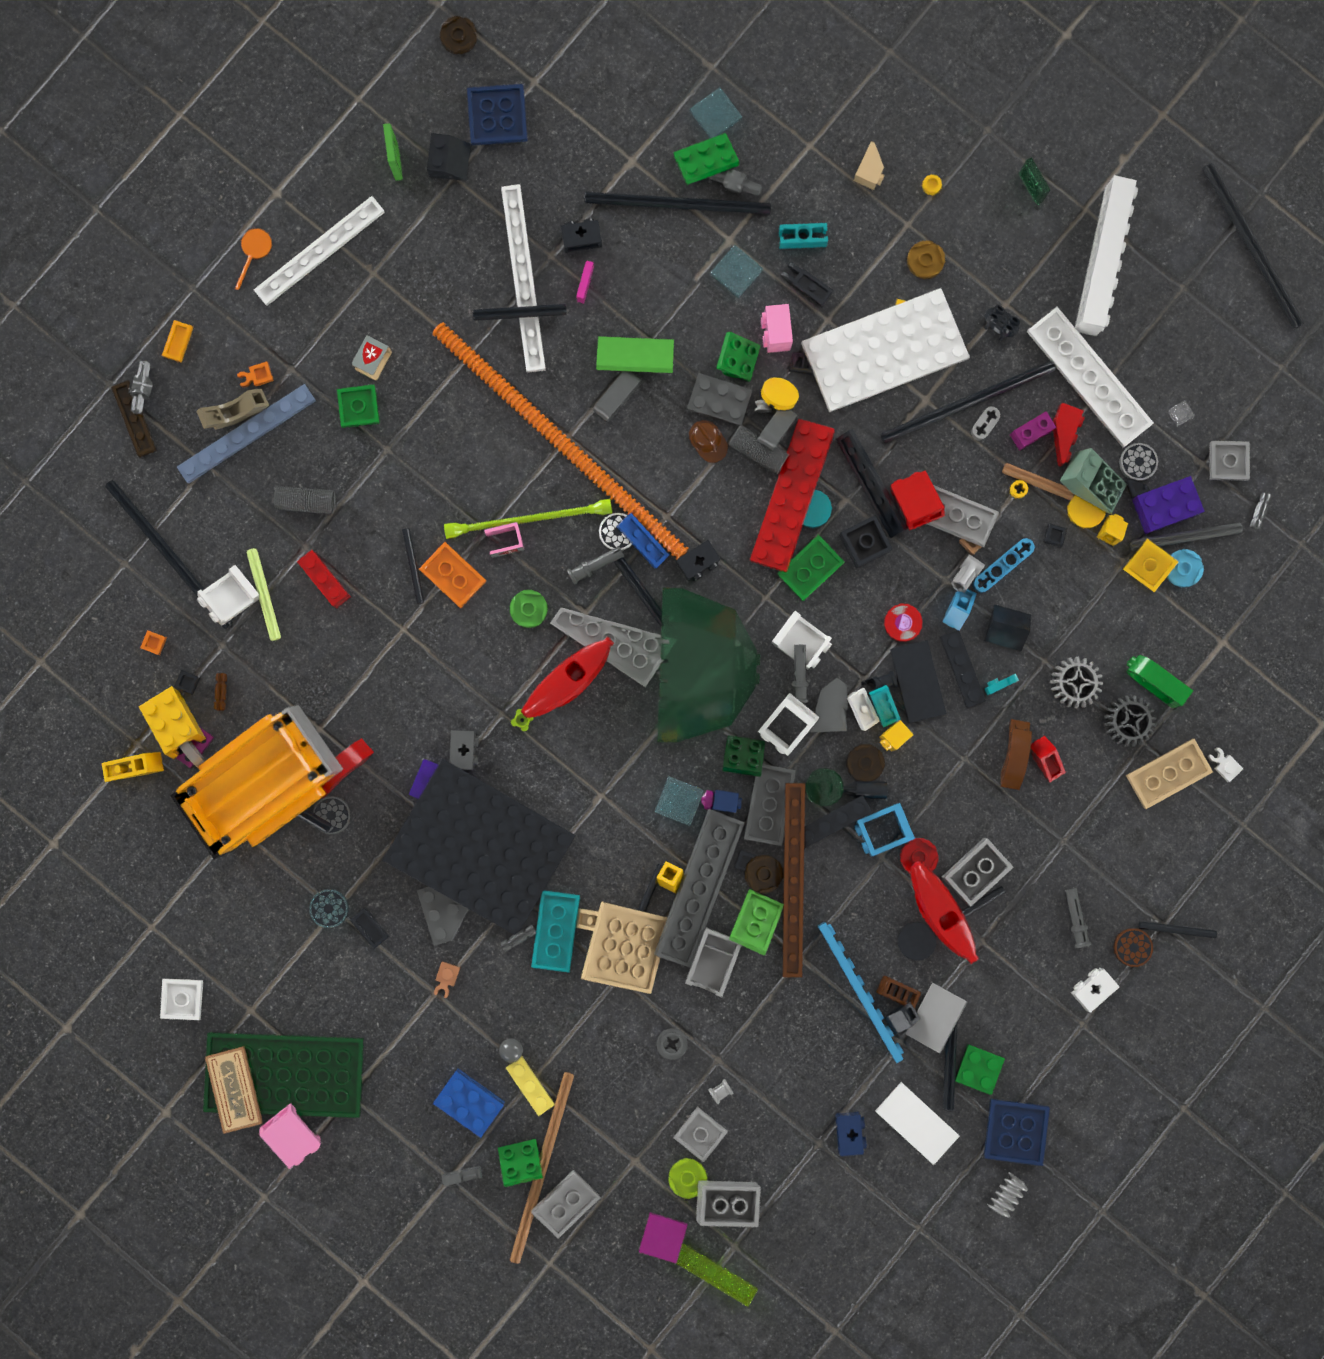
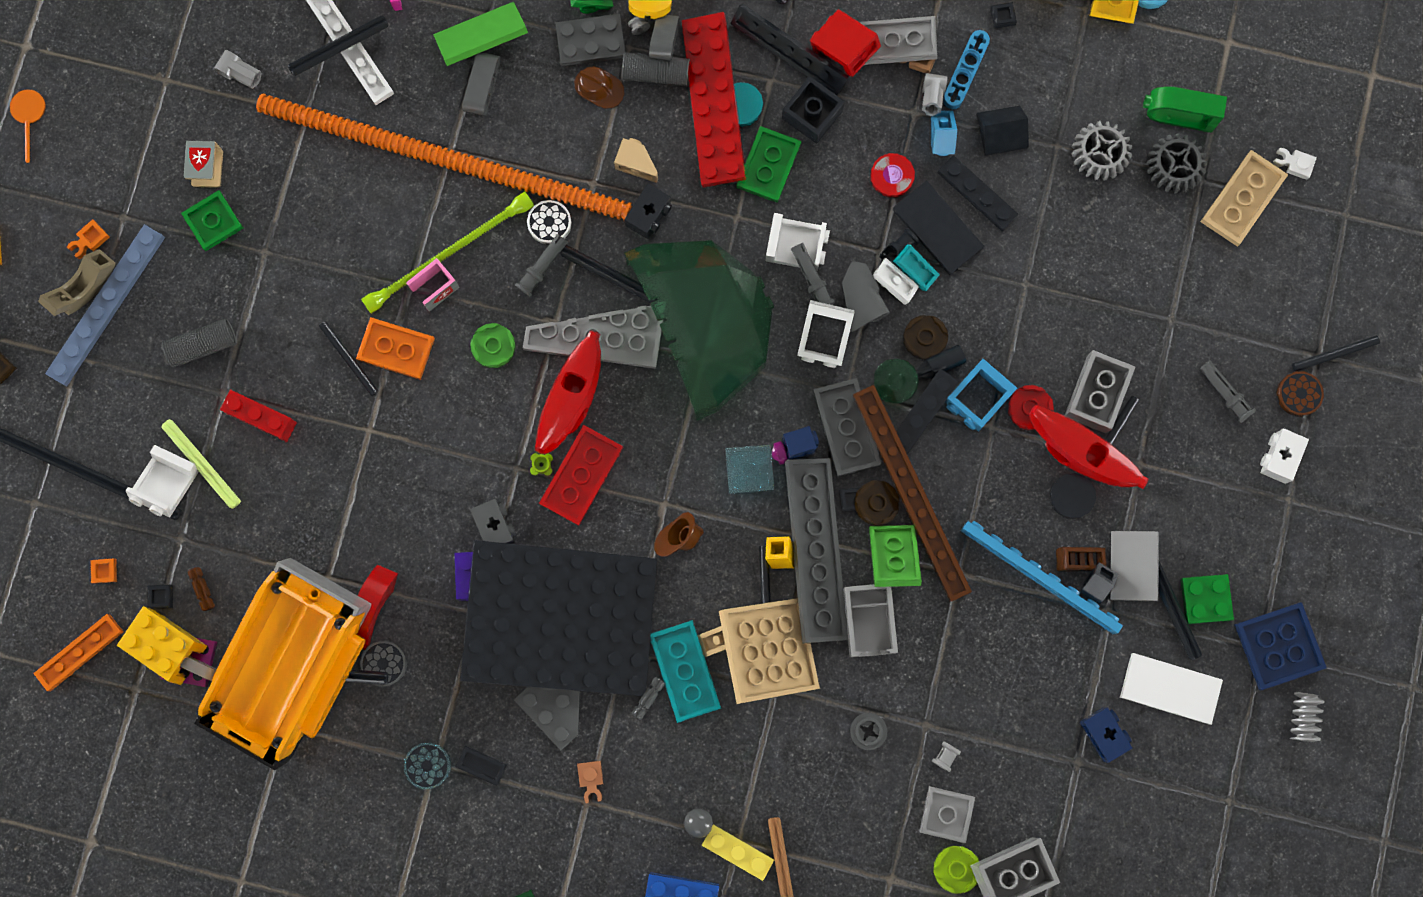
camera: 20 degrees left, 5 degrees down
(107, 696) = (78, 652): none -> orange plate
(132, 766) = (140, 714): yellow slope -> none
(319, 250) = (97, 82): white plate -> none
(430, 289) = (233, 67): none -> light grey piece
(548, 743) = (581, 475): none -> red plate
(599, 826) = (678, 535): none -> reddish brown piece
(642, 540) = (579, 217): blue plate -> none
(708, 515) = (635, 160): none -> tan slope
(743, 756) = (794, 388): dark green plate -> none
(895, 736) = (943, 291): yellow brick -> none
(996, 685) = (1020, 192): teal plate -> none
(1017, 754) = (1080, 251): reddish brown arch -> none
(1047, 758) = (1111, 241): red slope -> none

